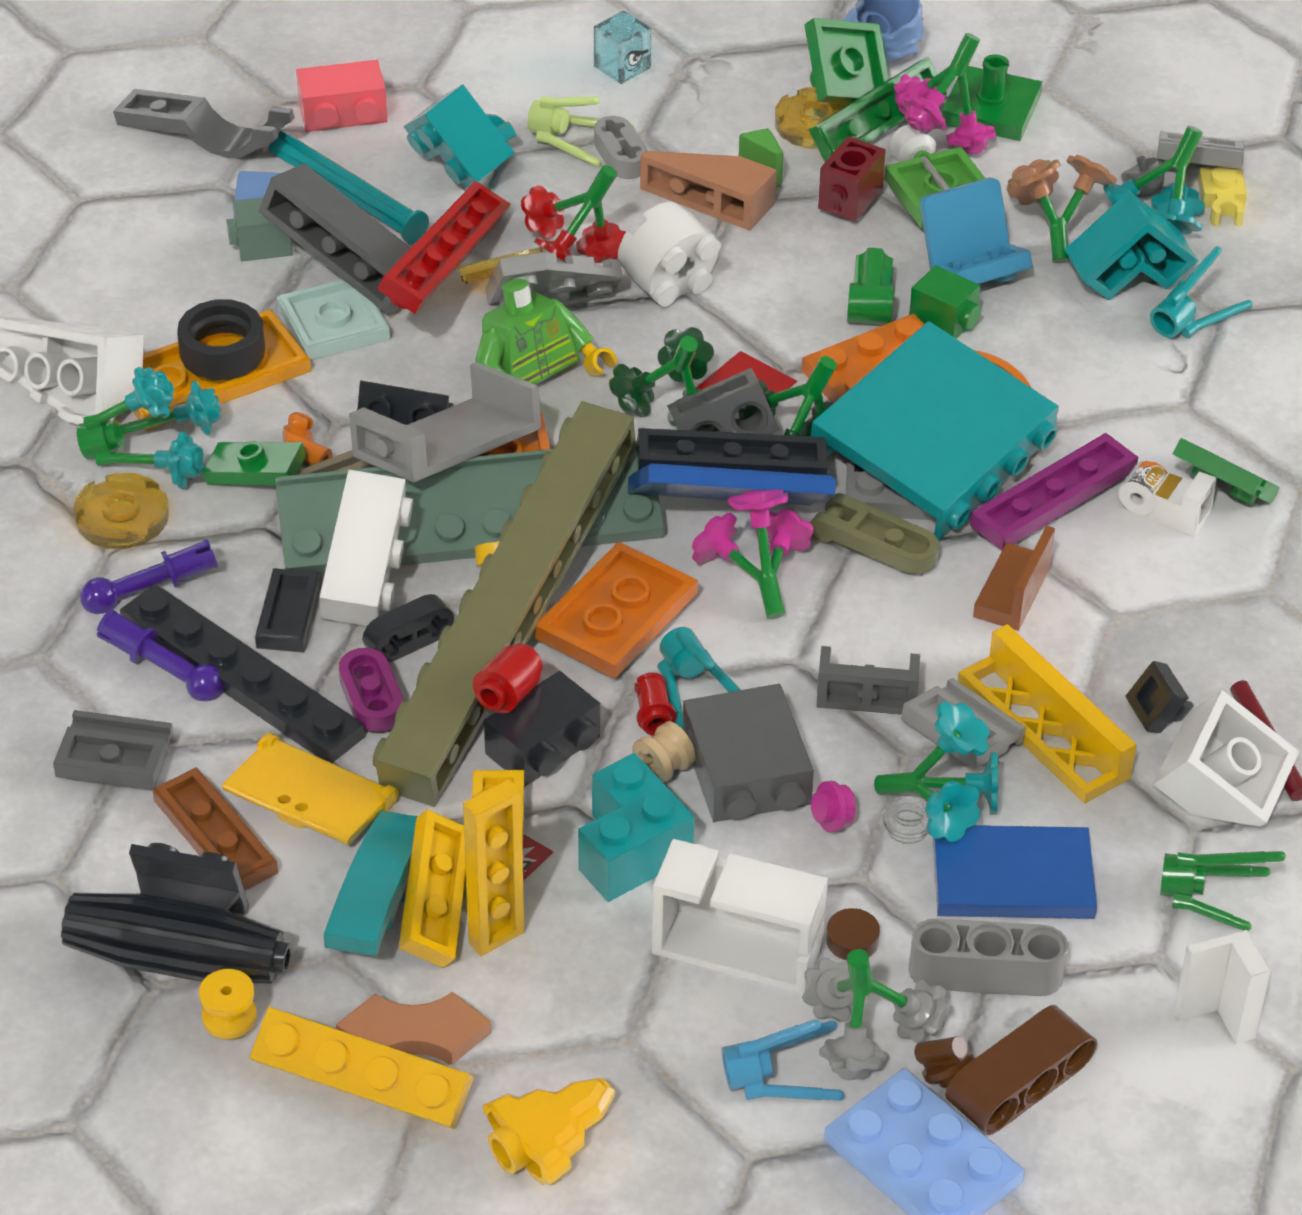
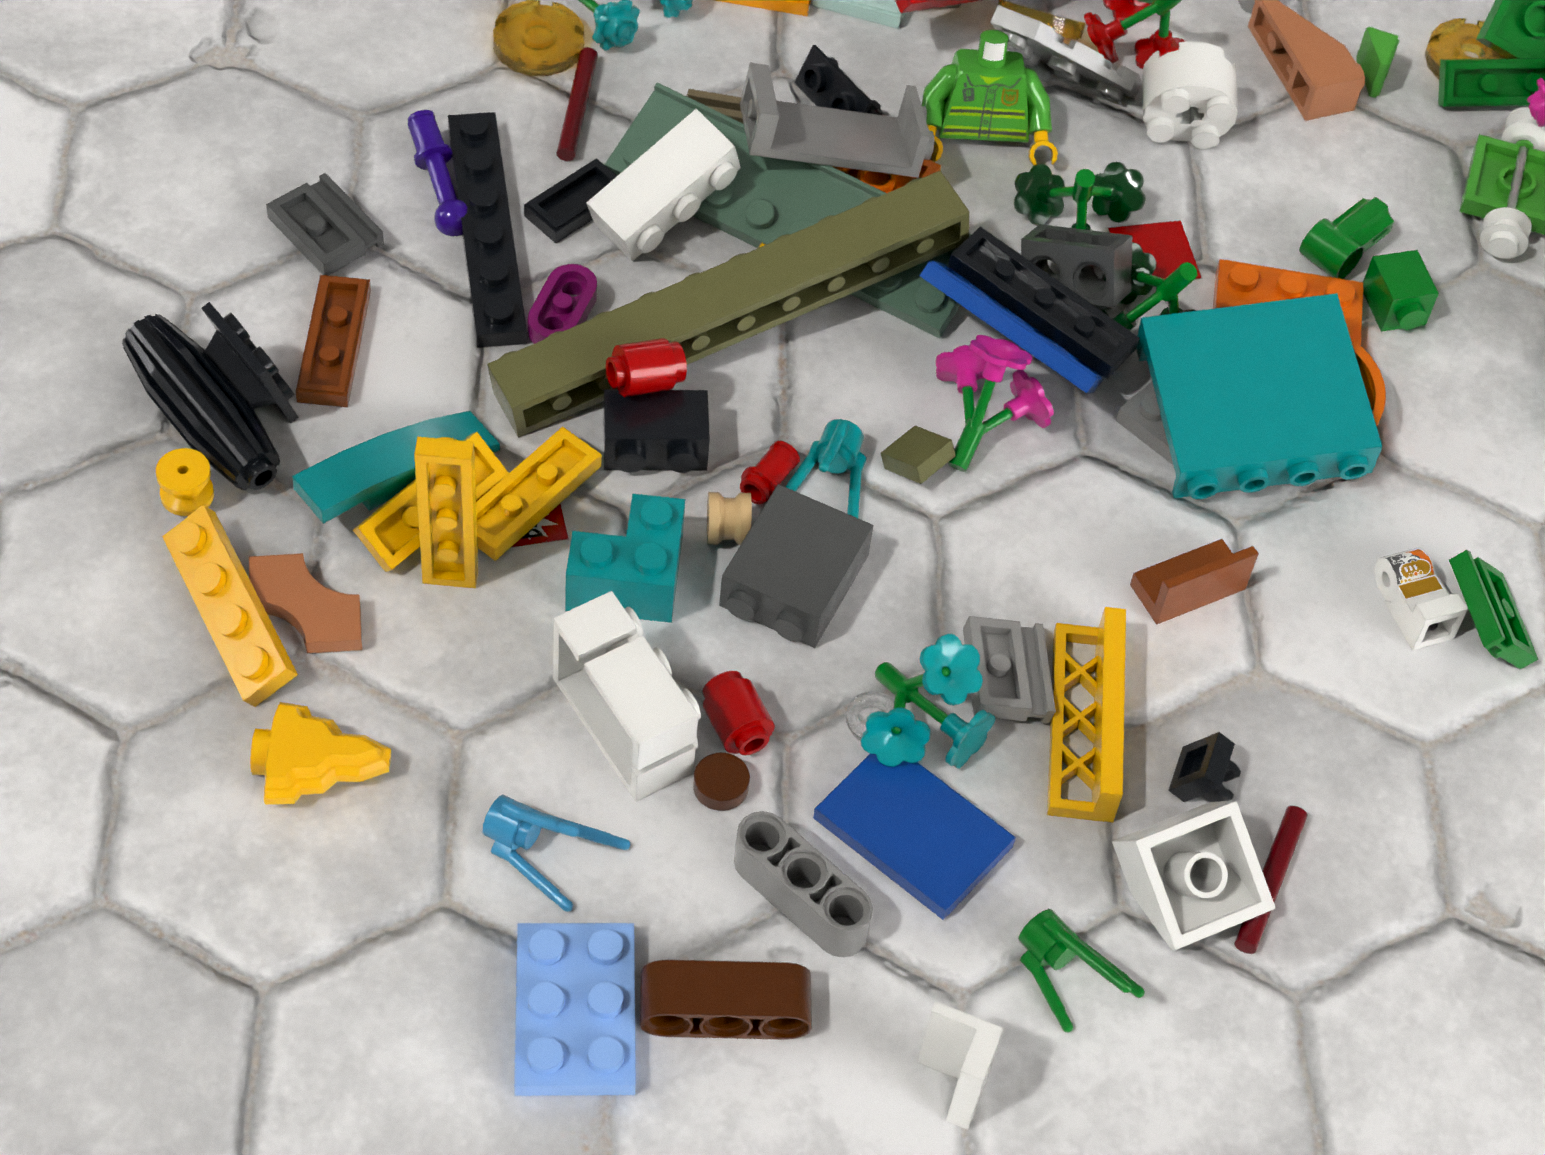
camera: 35 degrees right, 10 degrees up
(102, 595) = (453, 96): dark purple pin -> none
(202, 530) = (577, 104): none -> dark red bar
(253, 462) = (671, 62): green plate -> none
(299, 431) = (731, 66): orange arm -> none
(309, 790) = (440, 364): yellow door -> none
(408, 627) = (638, 272): black beam -> none
(616, 609) = (825, 372): orange plate -> none
(744, 622) = (918, 454): none -> olive tile
(833, 806) = (817, 661): dark pink plate -> none
(841, 882) = (737, 713): none -> red brick
(842, 988) = (645, 821): light grey plant -> none
(851, 178) = (1430, 126): dark red head -> none
(866, 686) = (962, 576): dark grey hinge -> none
(876, 534) = (1114, 456): olive plate -> none
(943, 1058) = (672, 941): reddish brown plate -> none
(969, 233) = (1482, 243): dark azure bracket -> none
(1053, 491) = (1316, 522): magenta plate -> none

